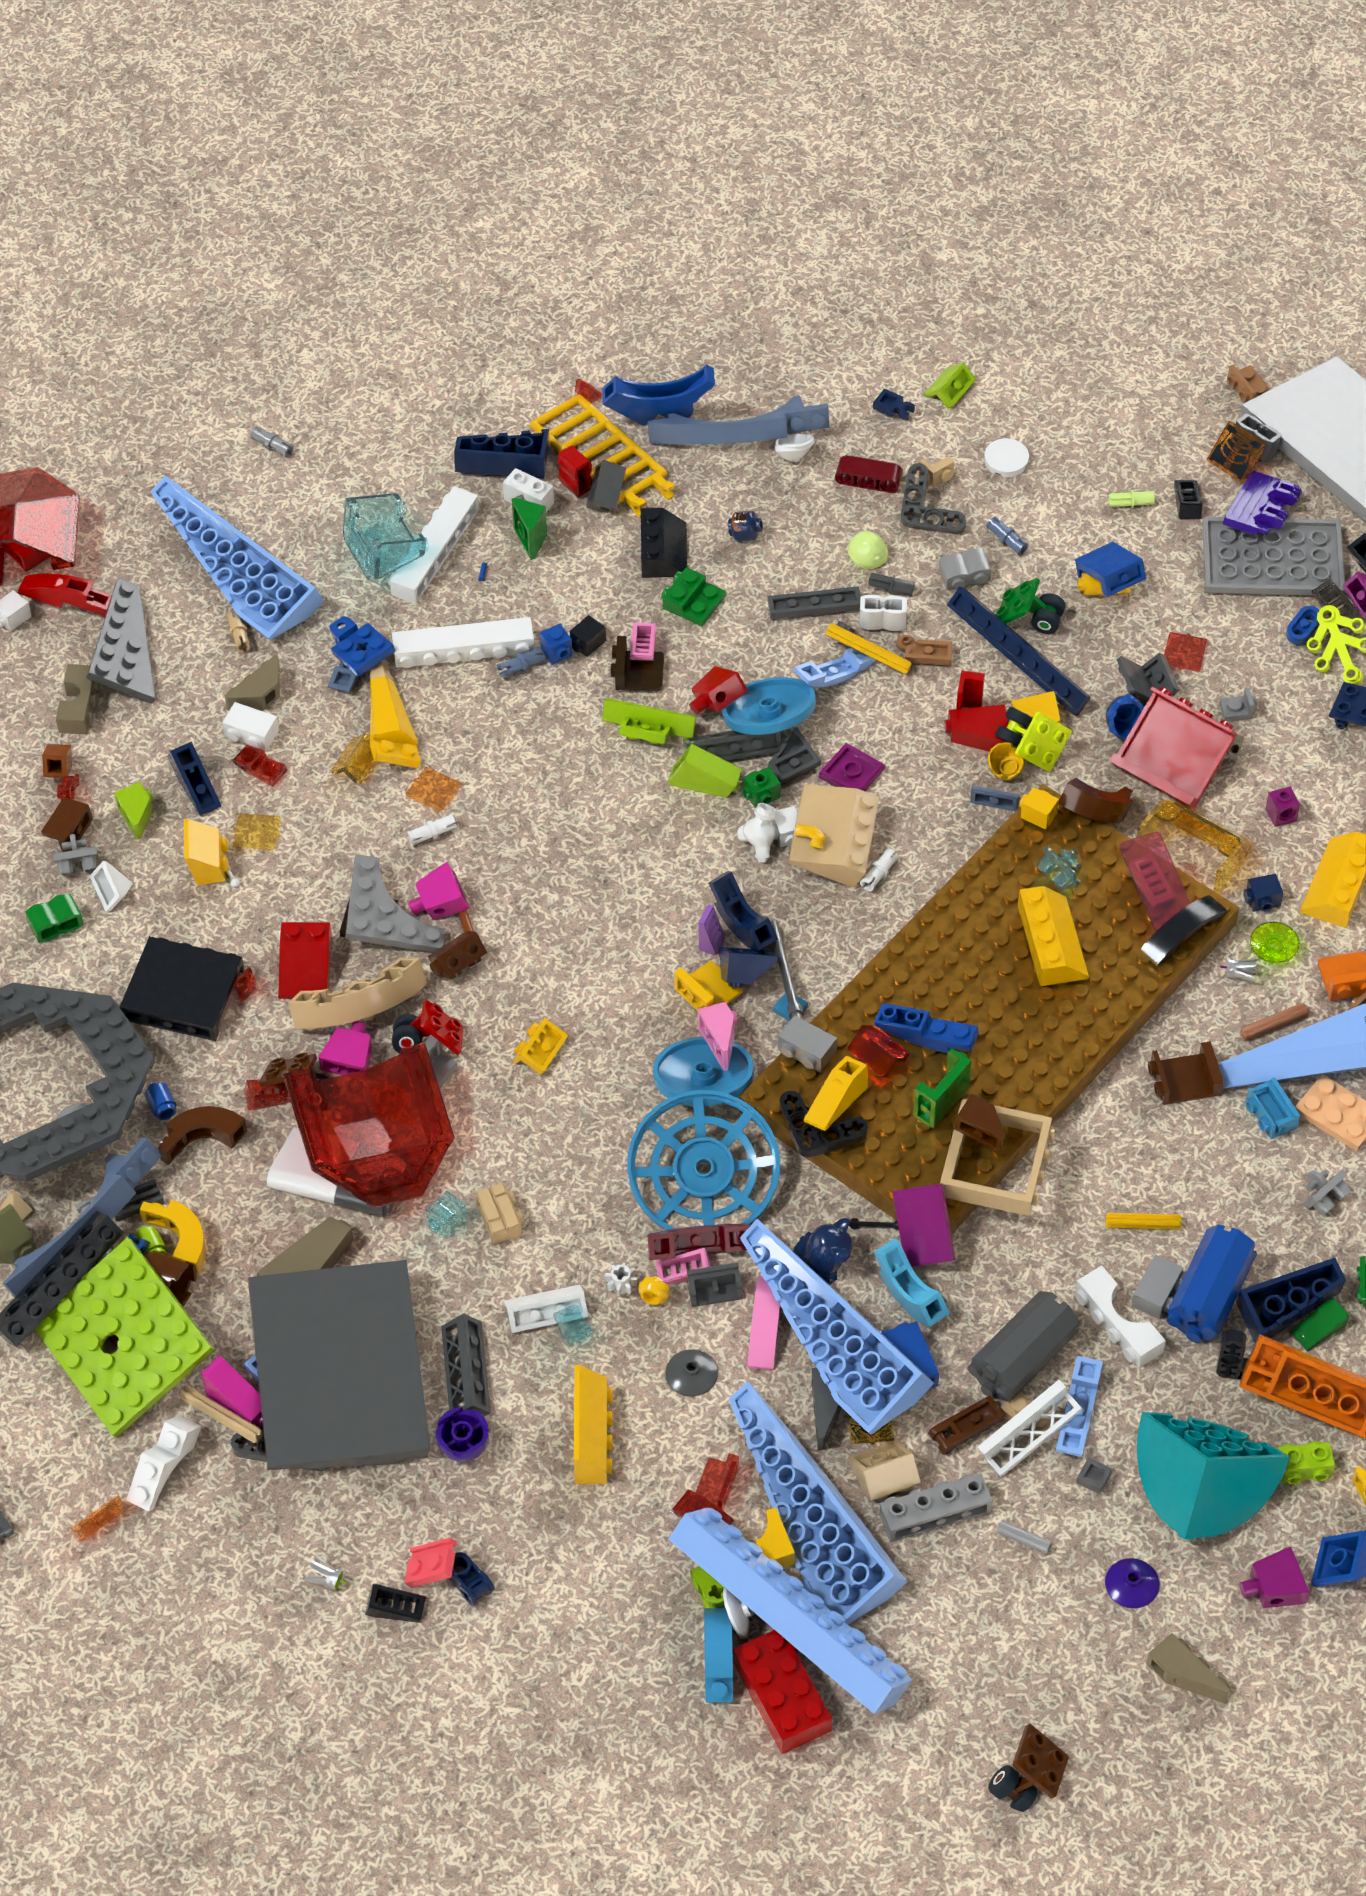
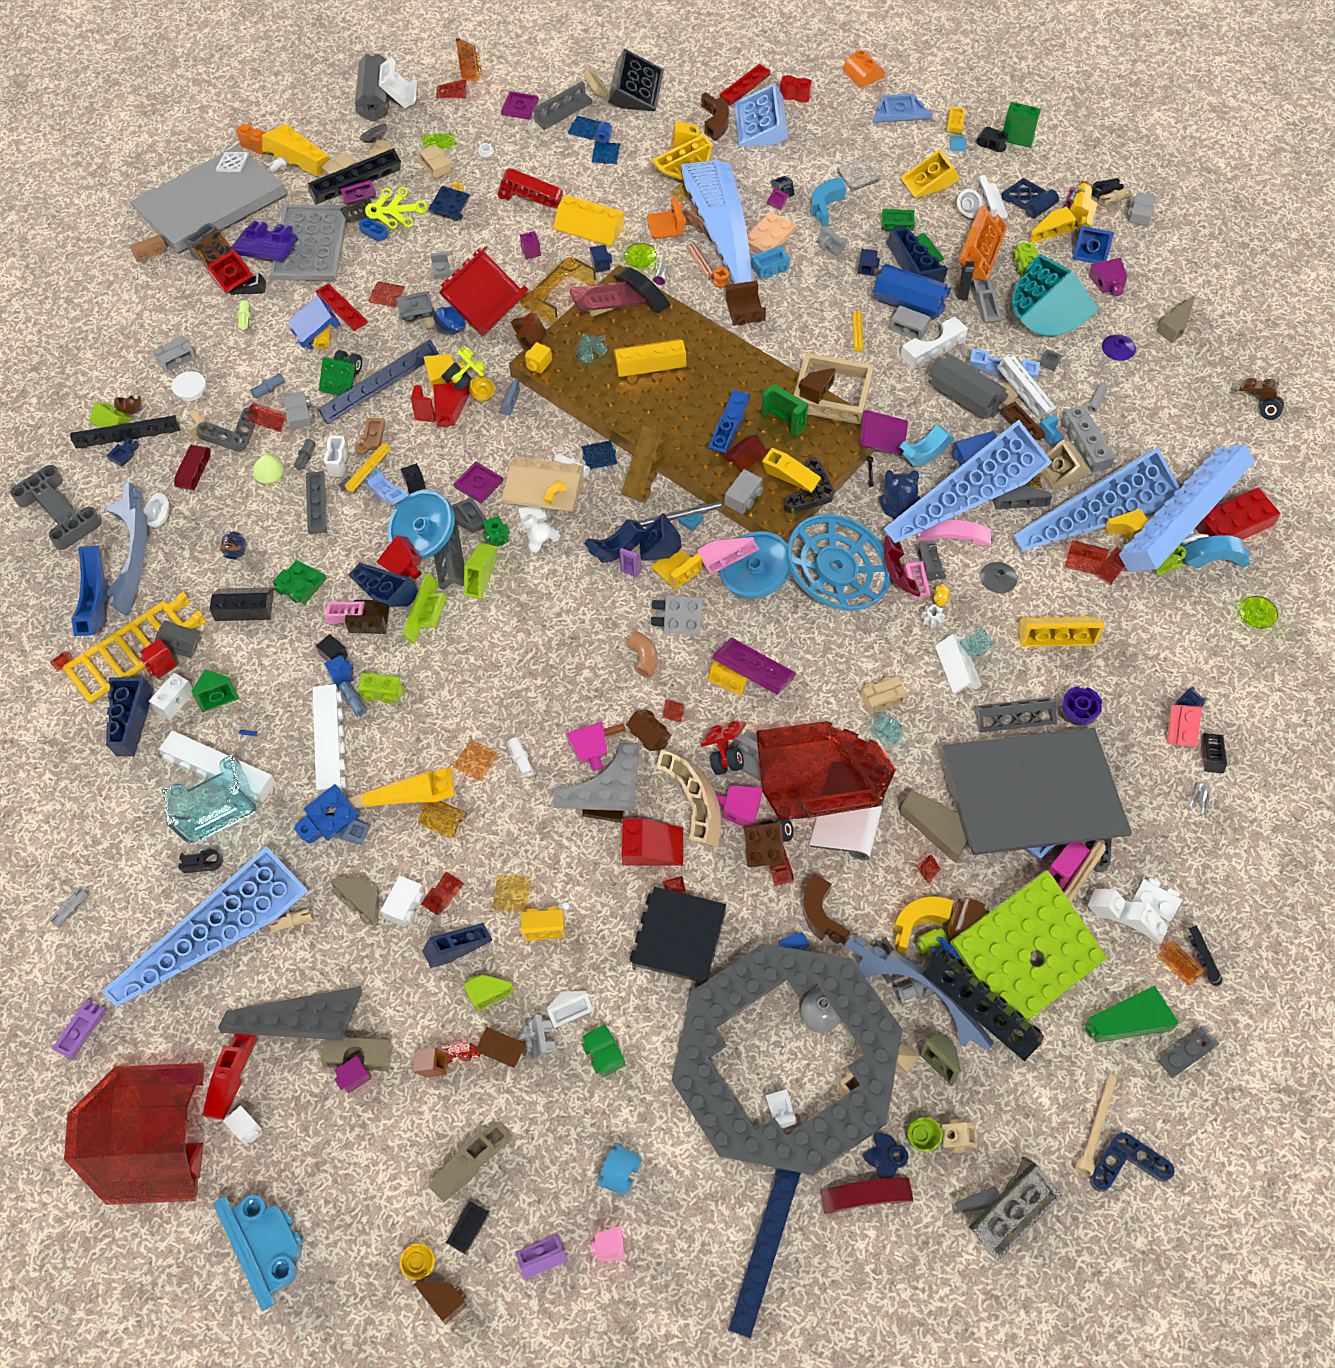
camera: 90 degrees left, 5 degrees up
(32, 1453) = (1136, 1016): none -> green slope
(51, 693) = (351, 1075): none -> magenta brick
(100, 1543) = (1205, 956): none -> black plate
(132, 468) = (79, 1029): none -> medium lavender hinge
(187, 1503) = (1161, 900): none -> white bracket
(247, 1249) = (929, 869): none -> clear red slope
(317, 543) = (198, 862): none -> black piece
(490, 986) = (673, 710): none -> clear red slope
(533, 685) = (380, 687): none -> lime brick
(548, 1069) = (754, 666): none -> magenta tile
(572, 954) = (647, 654): none -> nougat cylinder
(613, 1683) = (1261, 606): none -> clear neon green dish
(627, 985) = (678, 614): none -> light grey plate
(671, 682) = (384, 586): none -> dark blue wedge
(828, 334) = (70, 525): none -> dark grey beam
(850, 696) = (413, 478): none -> black brick
(861, 936) = (644, 464): none -> pearl gold brick
(900, 902) = (599, 454): none -> clear blue piece
(924, 406) = (119, 432): none -> black plate
(951, 535) = (266, 416): none -> clear red panel
(951, 1461) = (1052, 434): none -> dark azure panel
(968, 397) = (128, 405): none -> reddish brown hair
(1056, 433) = (174, 353): none -> light grey brick
(1155, 602) = (341, 307): none -> red tile
(1201, 472) = (229, 271): none -> red slope
(1211, 1397) = (986, 300): none -> light grey slope
(1234, 1040) = (720, 277): none -> orange wheel
(1284, 1237) = (868, 262): none -> dark blue brick

